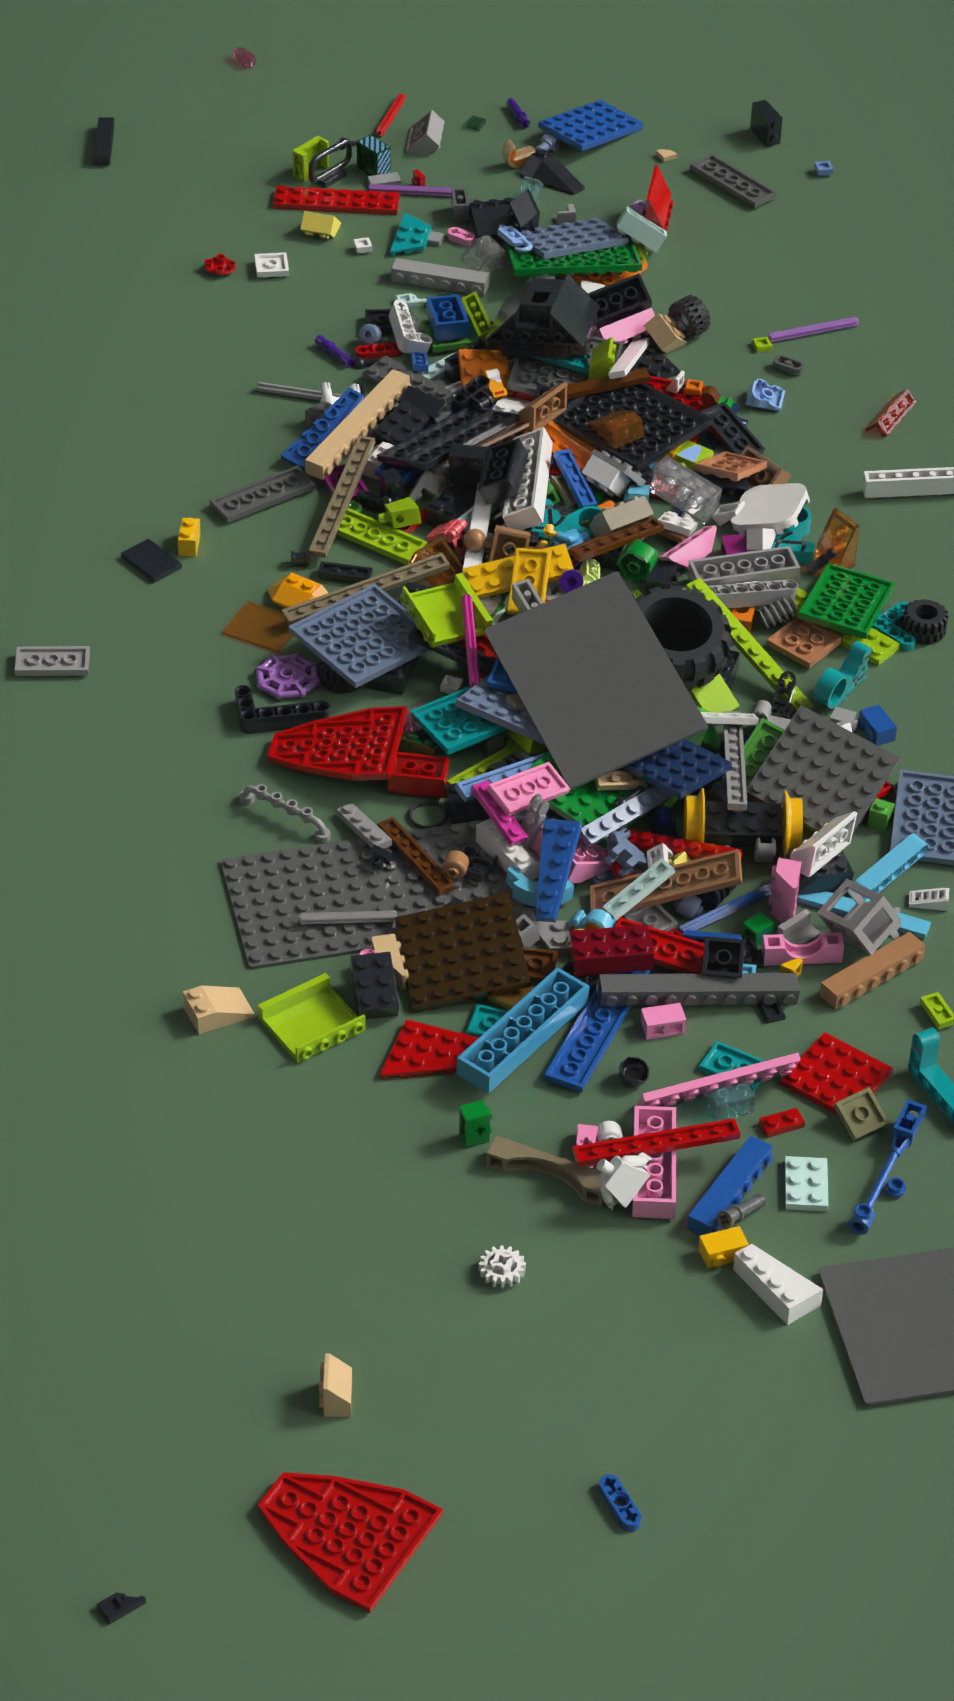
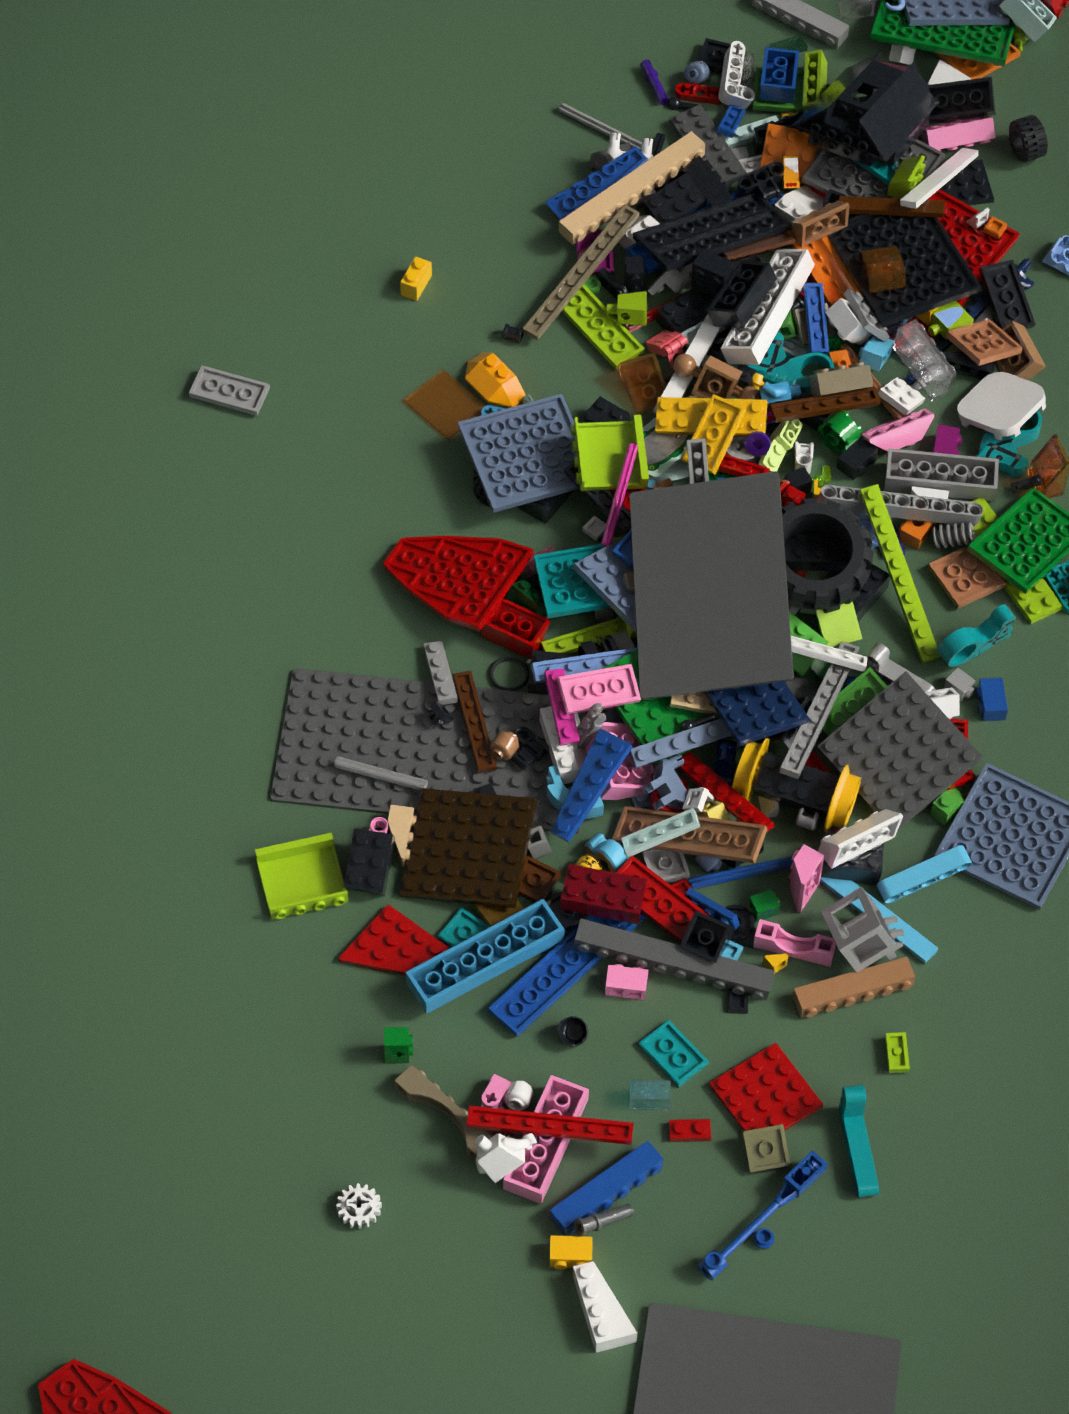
camera: 20 degrees right, 15 degrees up
(151, 560) = (371, 294): black tile -> none
(215, 1007) = (221, 836): tan slope -> none
(246, 797) = (348, 603): light grey bar -> none
(262, 494) = (509, 243): dark grey plate -> none
(275, 717) = (389, 515): black beam -> none
(278, 676) = (442, 480): medium lavender plate -> none
(335, 1387) = (154, 1287): tan slope -> none
(343, 572) = (549, 362): black plate -> none
(386, 581) = (571, 392): dark tan plate -> none
(410, 300) = (757, 36): light aqua tile -> none
(554, 935) = (566, 852): light grey wing -> none
(665, 333) = (996, 150): tan slope -> none
(689, 1090) = (653, 1073): bright pink plate -> none
(711, 397) = (1008, 250): reddish brown leg -> none
(727, 511) = (957, 396): white slope -> none
(760, 538) = (973, 441): white slope -> none
(786, 711) = (908, 657): black beam -> none
(798, 929) = (803, 918): light grey panel -> none
(806, 1183) = (682, 1205): light aqua plate -> none
(936, 899) = (953, 928): white slope -> none

